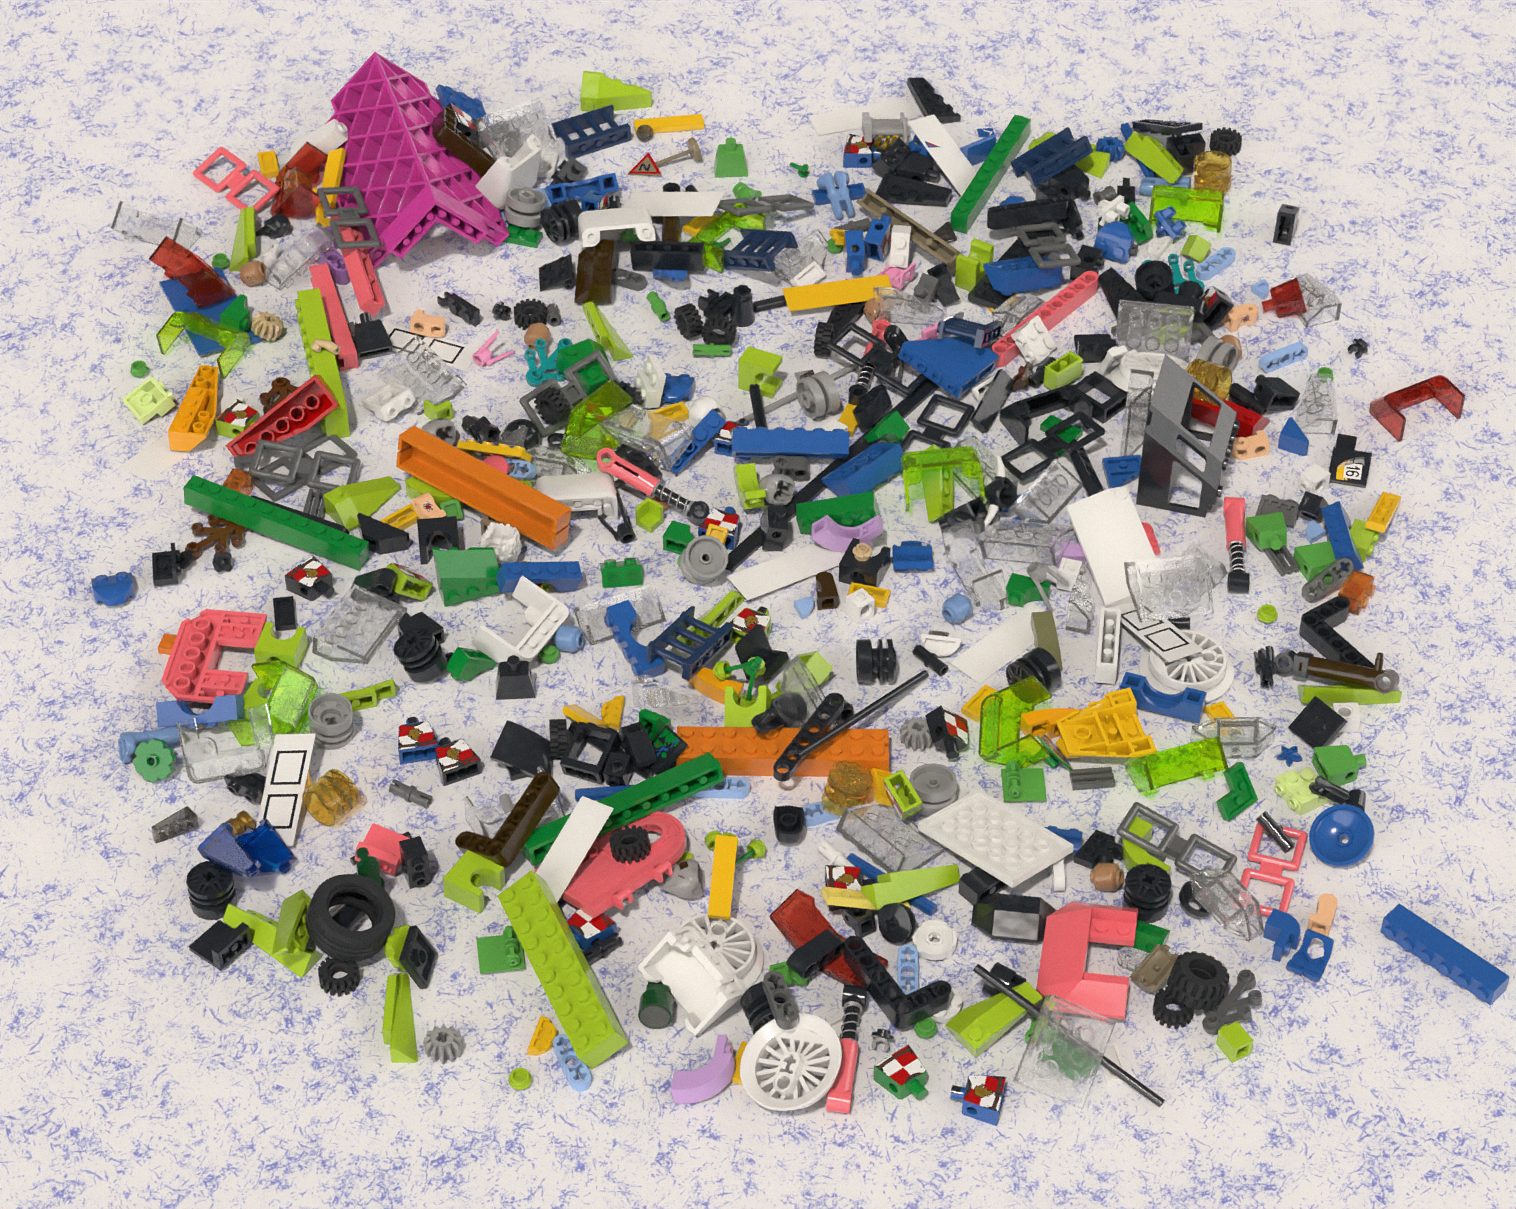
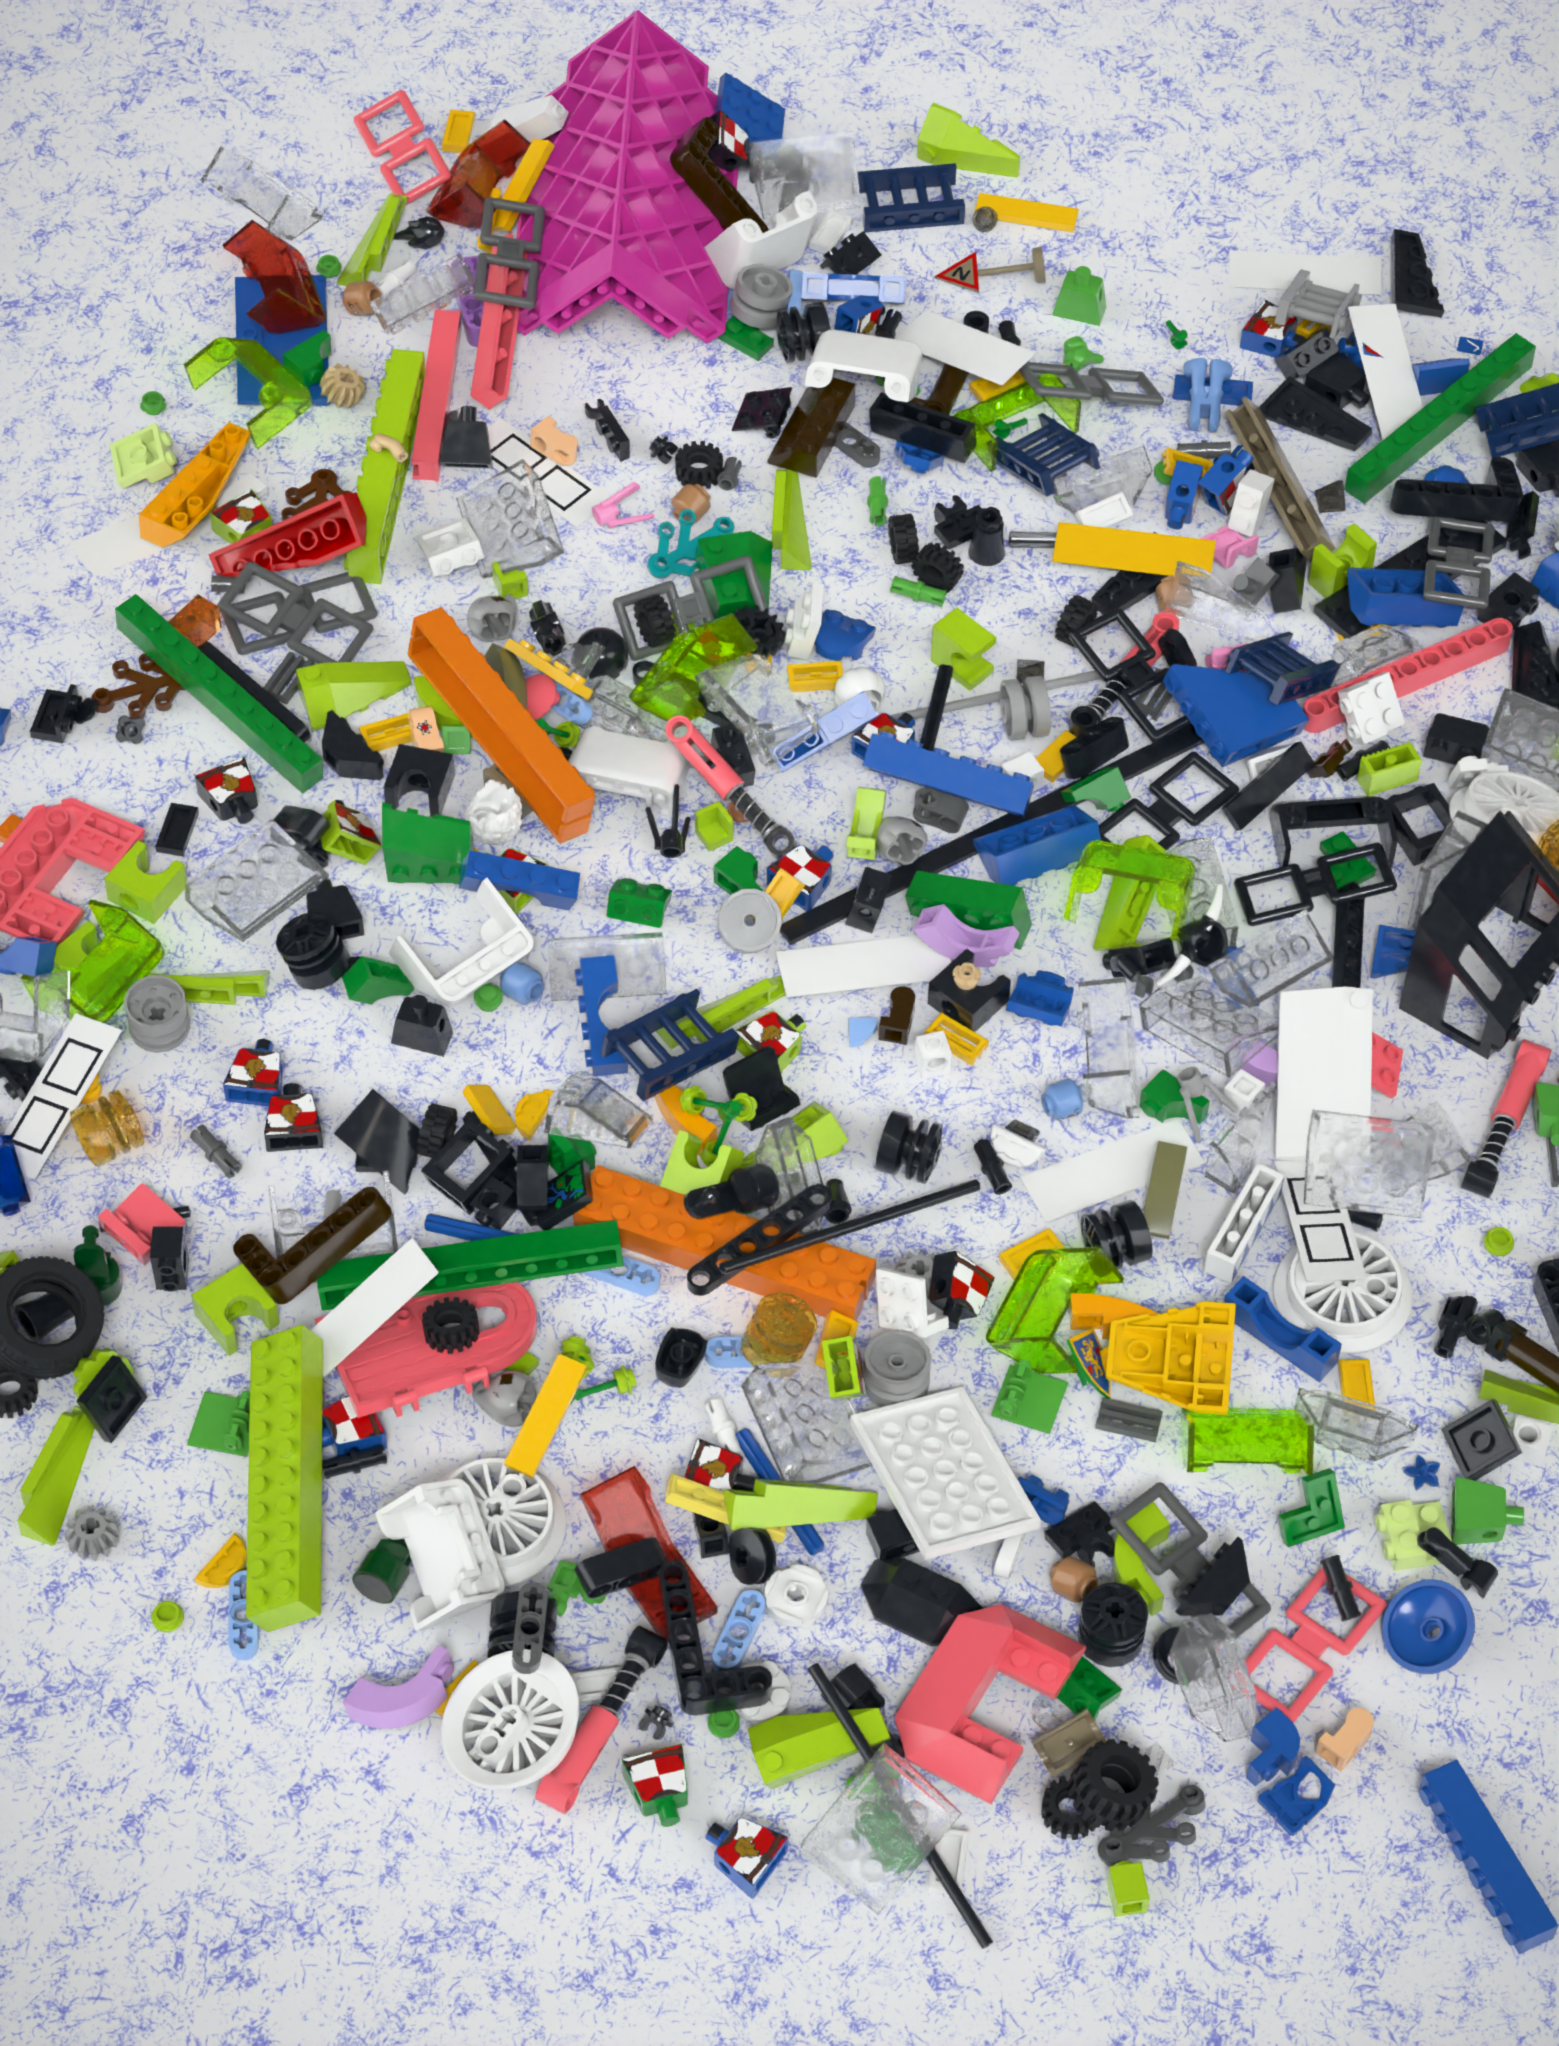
camera: 20 degrees right, 10 degrees up
(921, 746) = (904, 1304): none -> white bracket
(1202, 847) = (1218, 1583): none -> black slope

